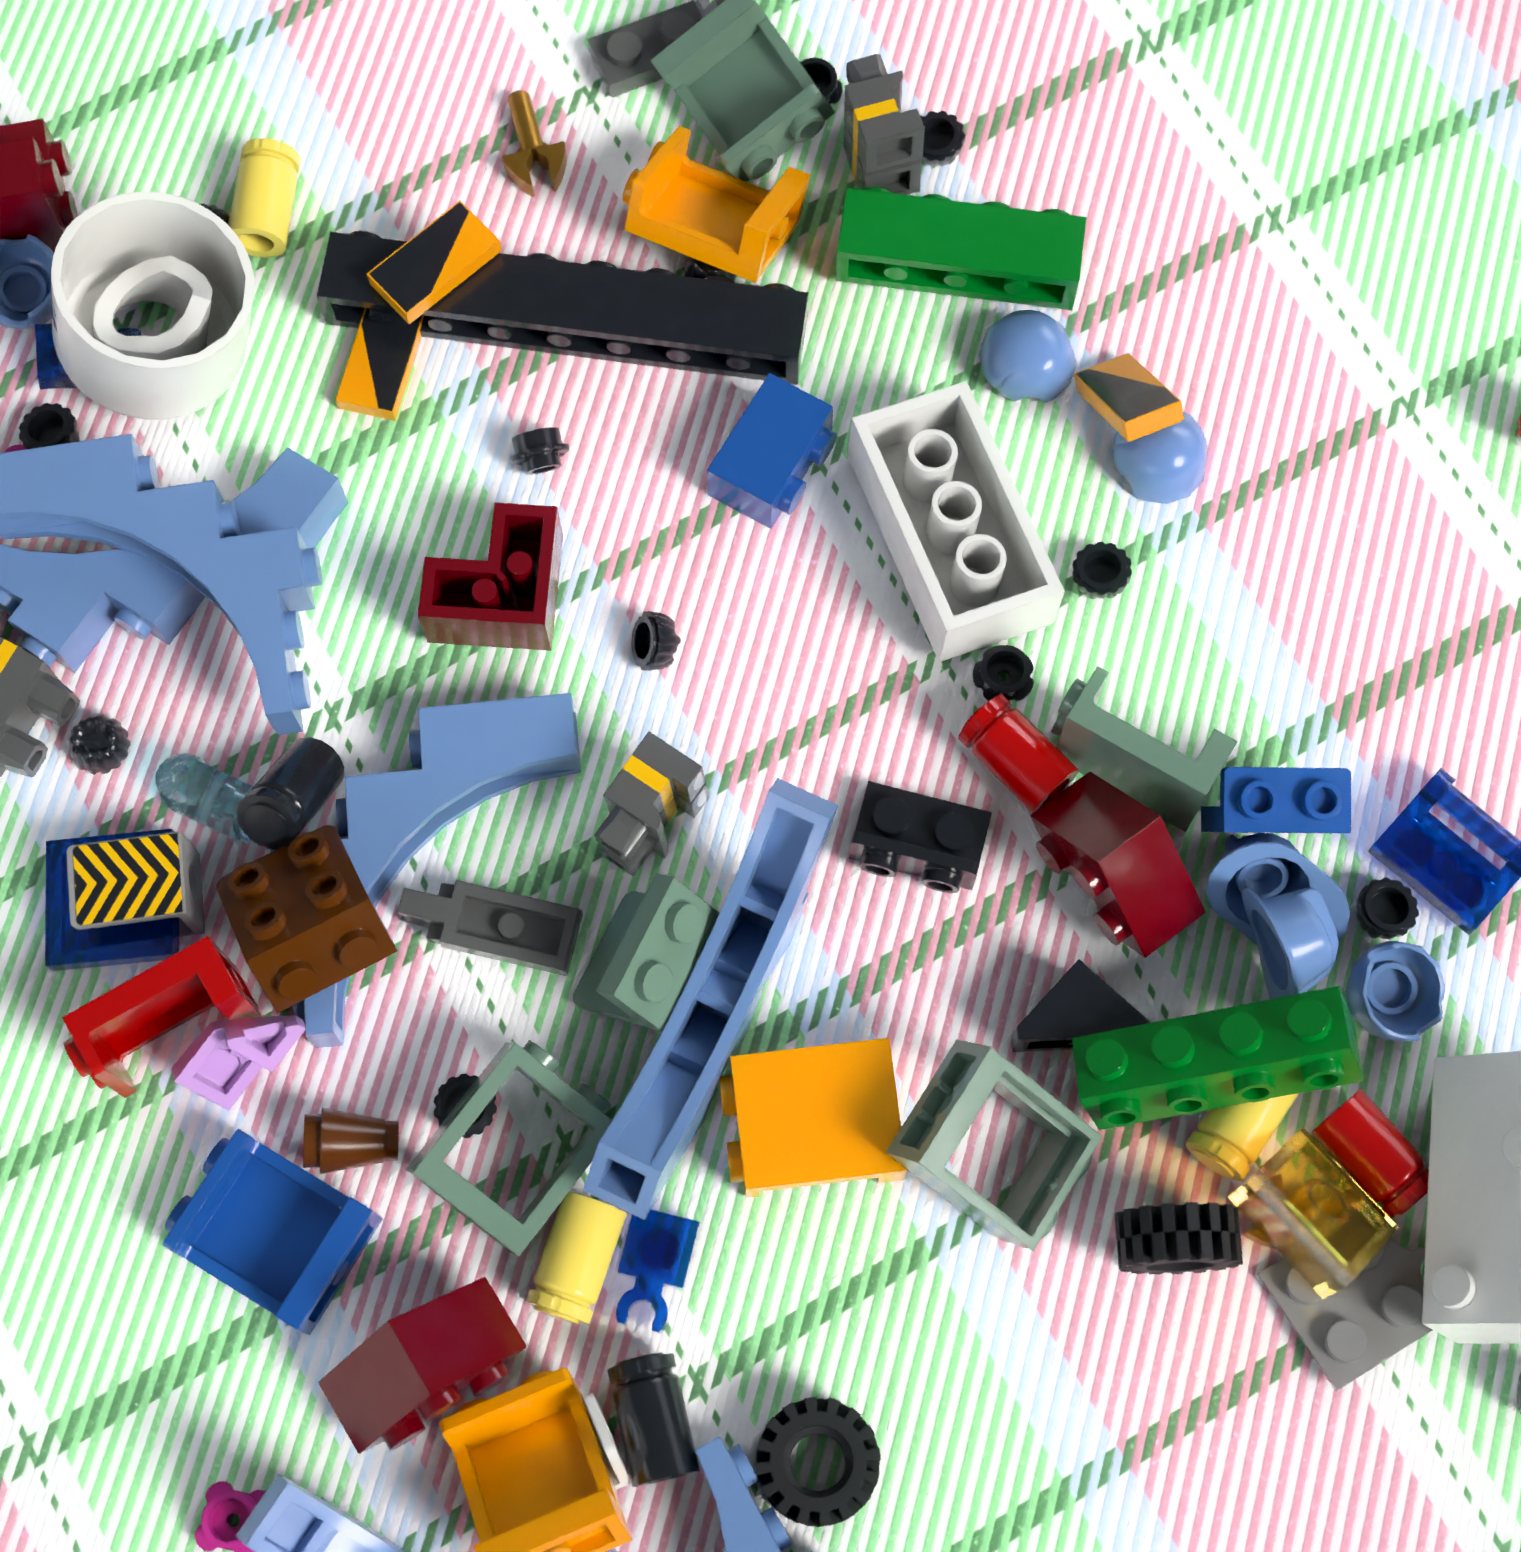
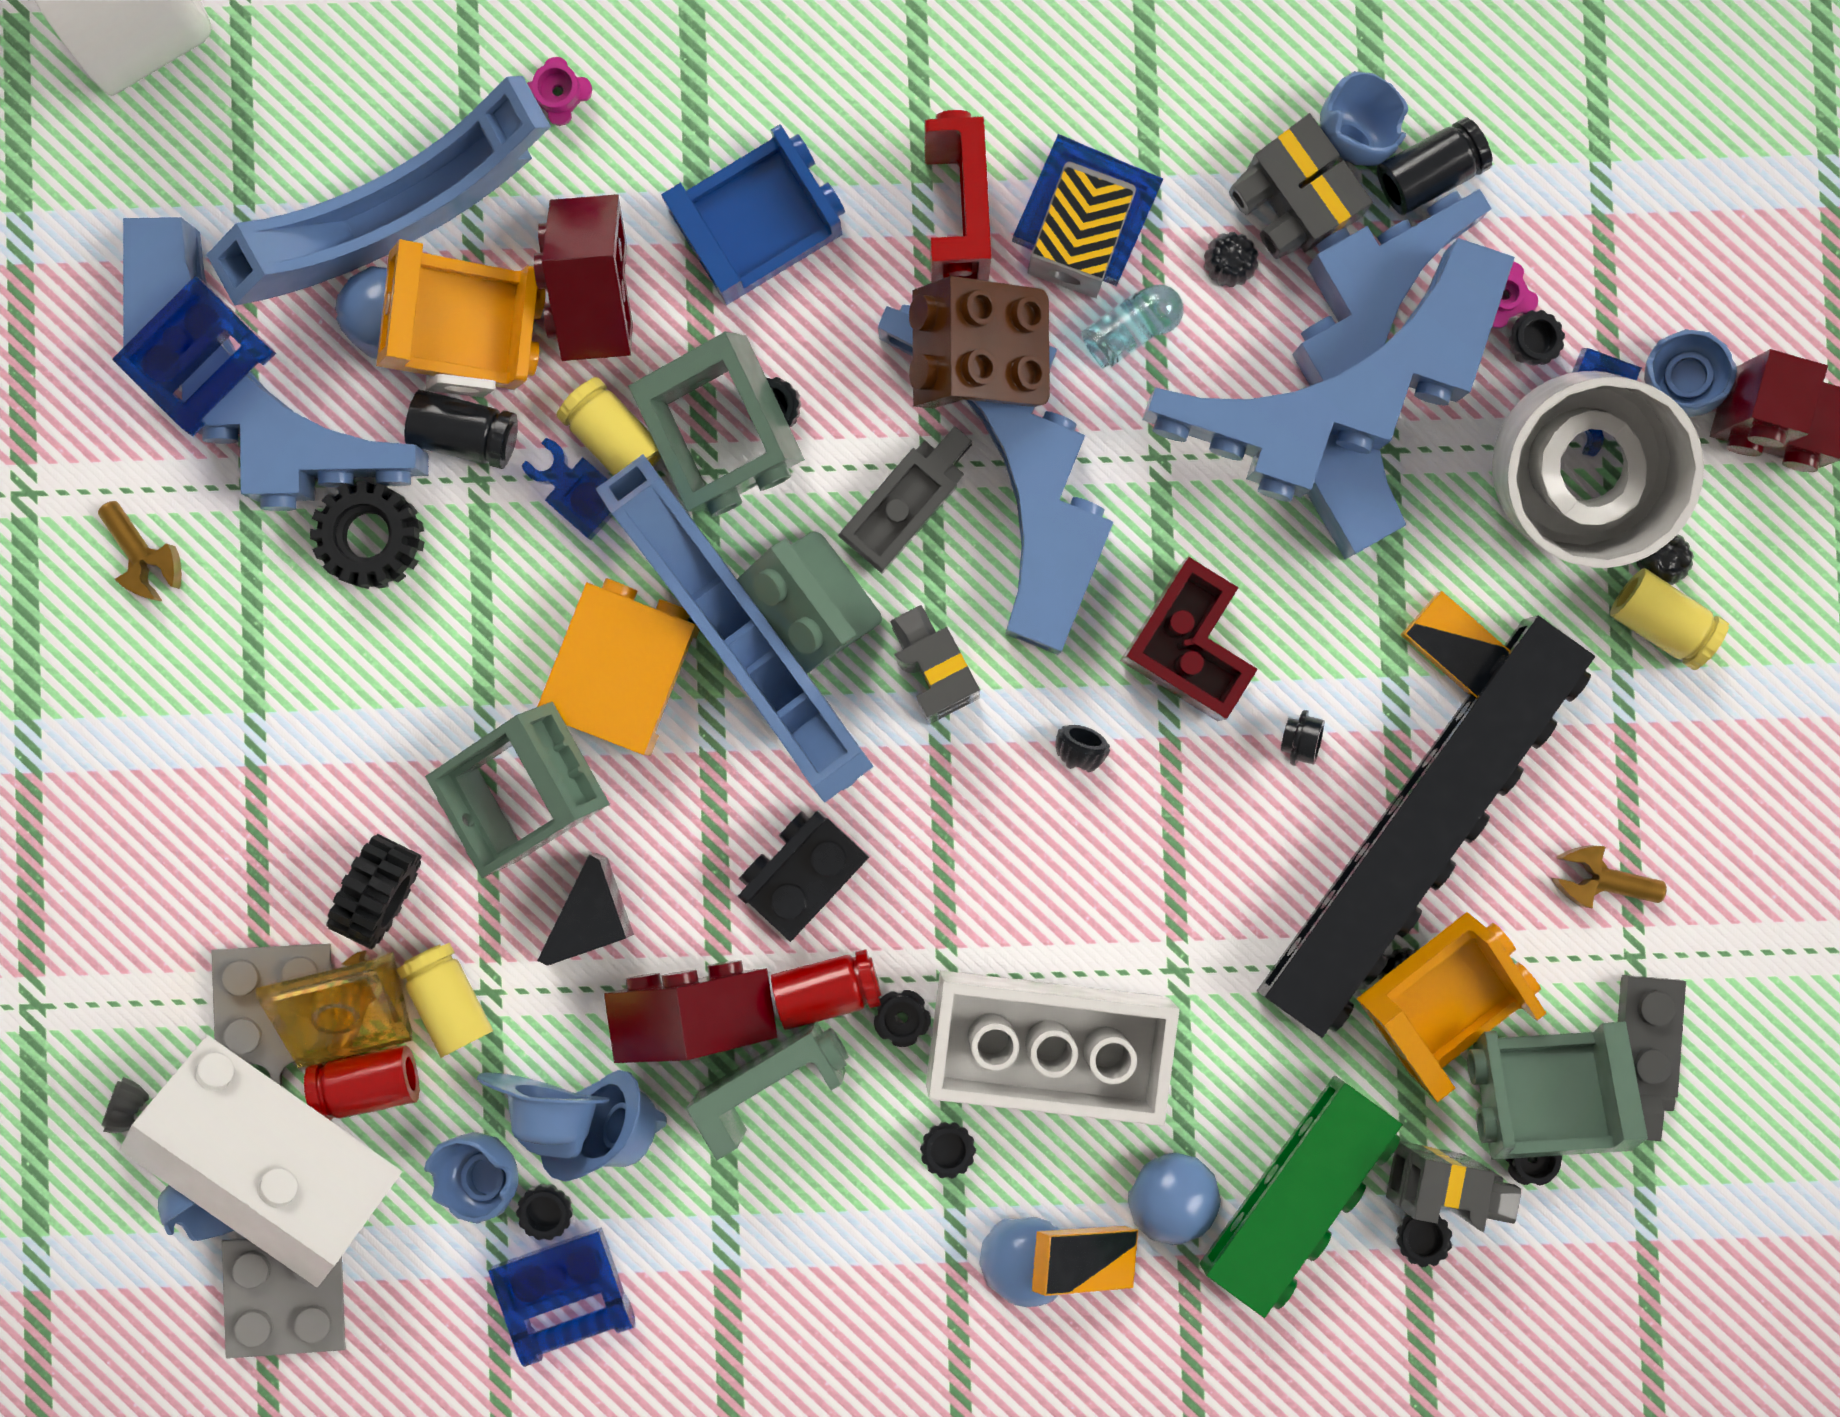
camera: 120 degrees right, 15 degrees up
(232, 1054) = (904, 241): lavender slope -> none
(290, 793) = (1095, 386): black piece -> none
(347, 1140) = (795, 303): reddish brown cone -> none
(434, 262) = (1515, 729): tile -> none
(771, 452) = (1197, 932): blue brick -> none
(1218, 1058) = (484, 998): green brick -> none
(1281, 801) = (660, 1174): blue bracket -> none

